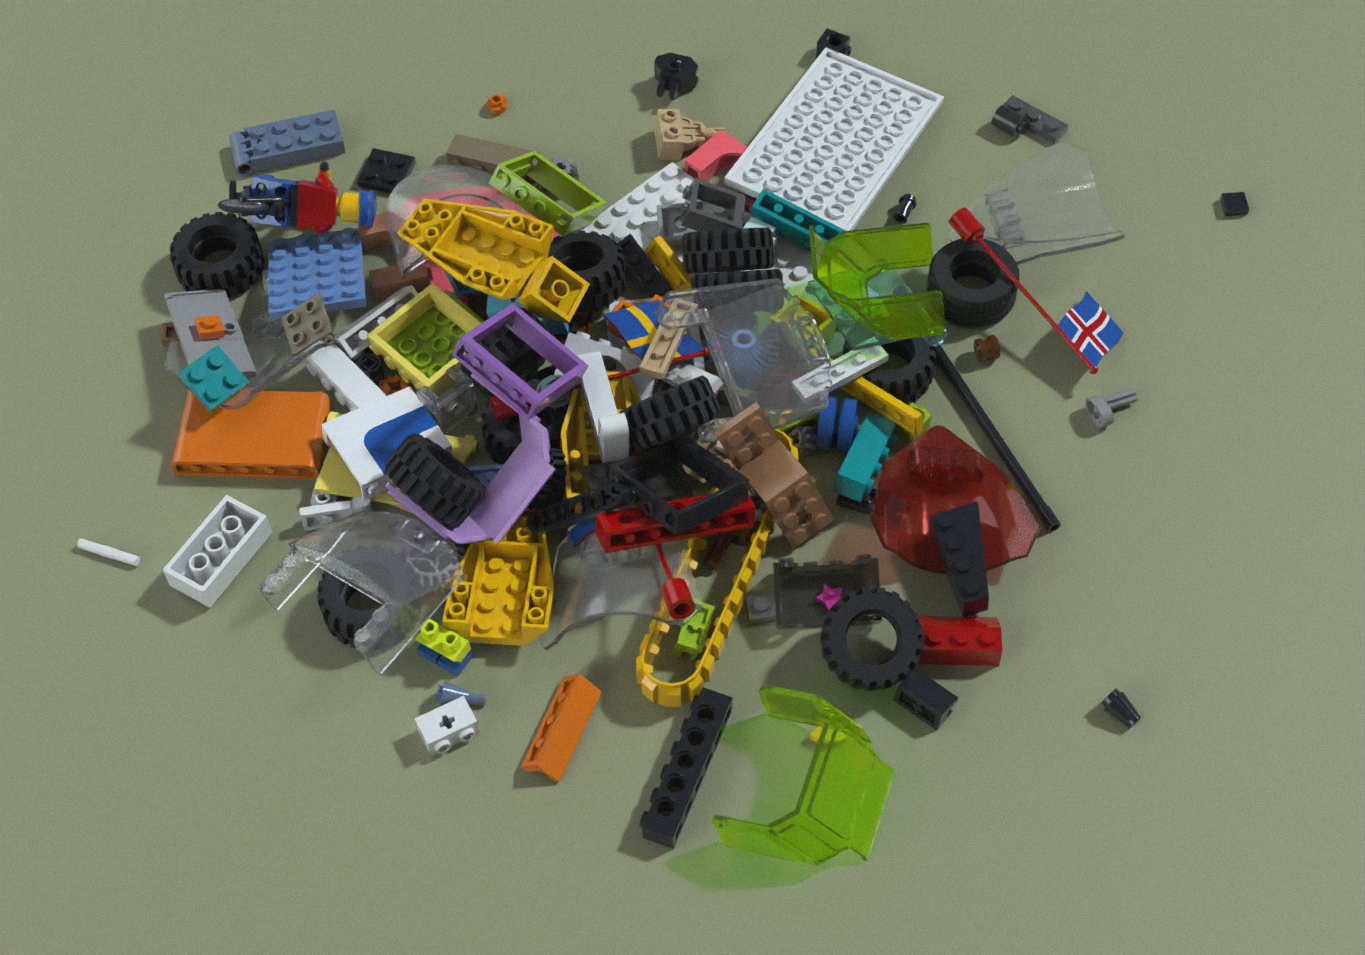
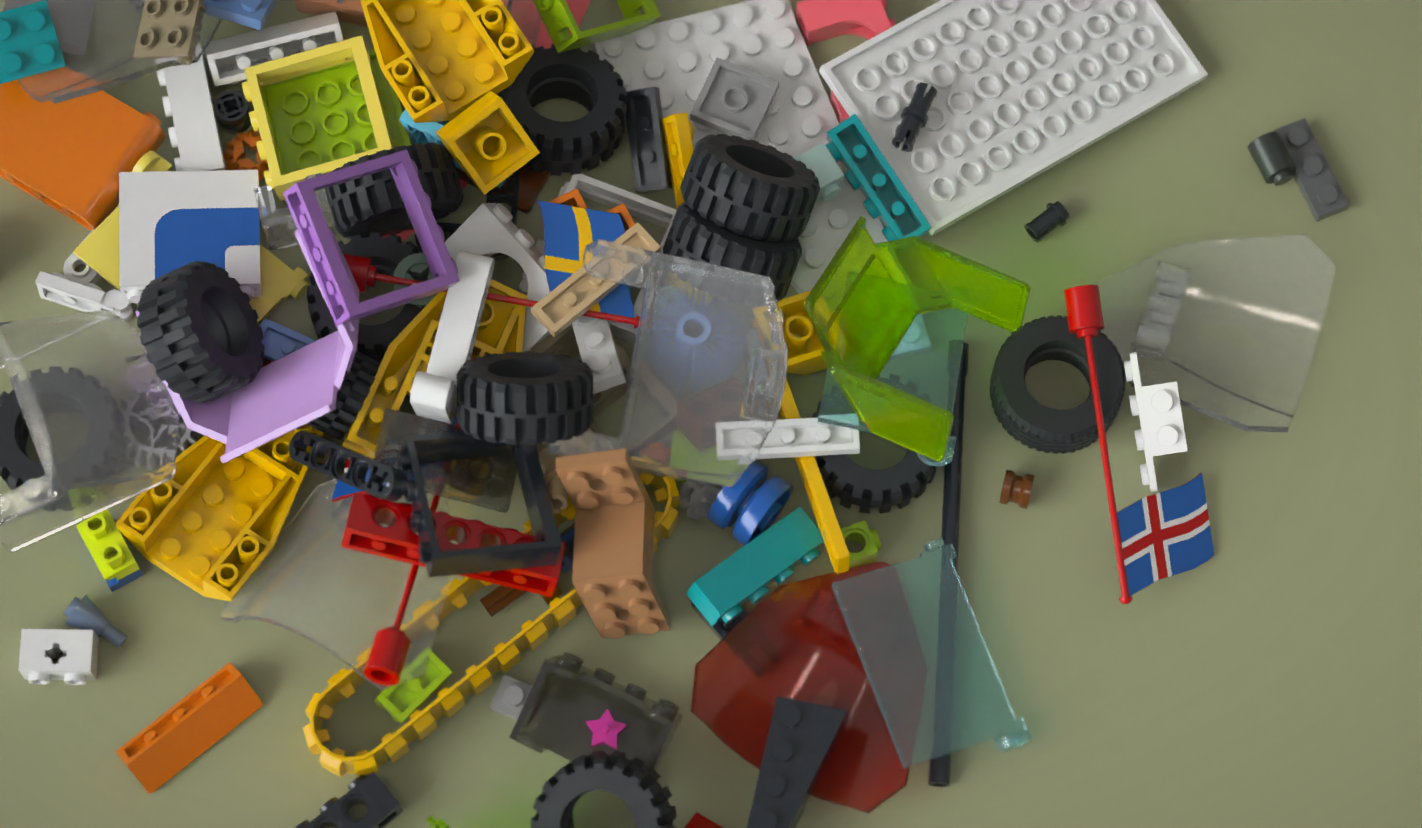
camera: 25 degrees right, 15 degrees up
(715, 195) = (760, 124): dark grey window -> none
(797, 178) = (914, 117): none -> black pin
(1003, 456) = (927, 658): none -> clear light blue door
(1044, 269) = (1159, 417): none -> white bracket
(1100, 407) = (1106, 648): light grey piece -> none

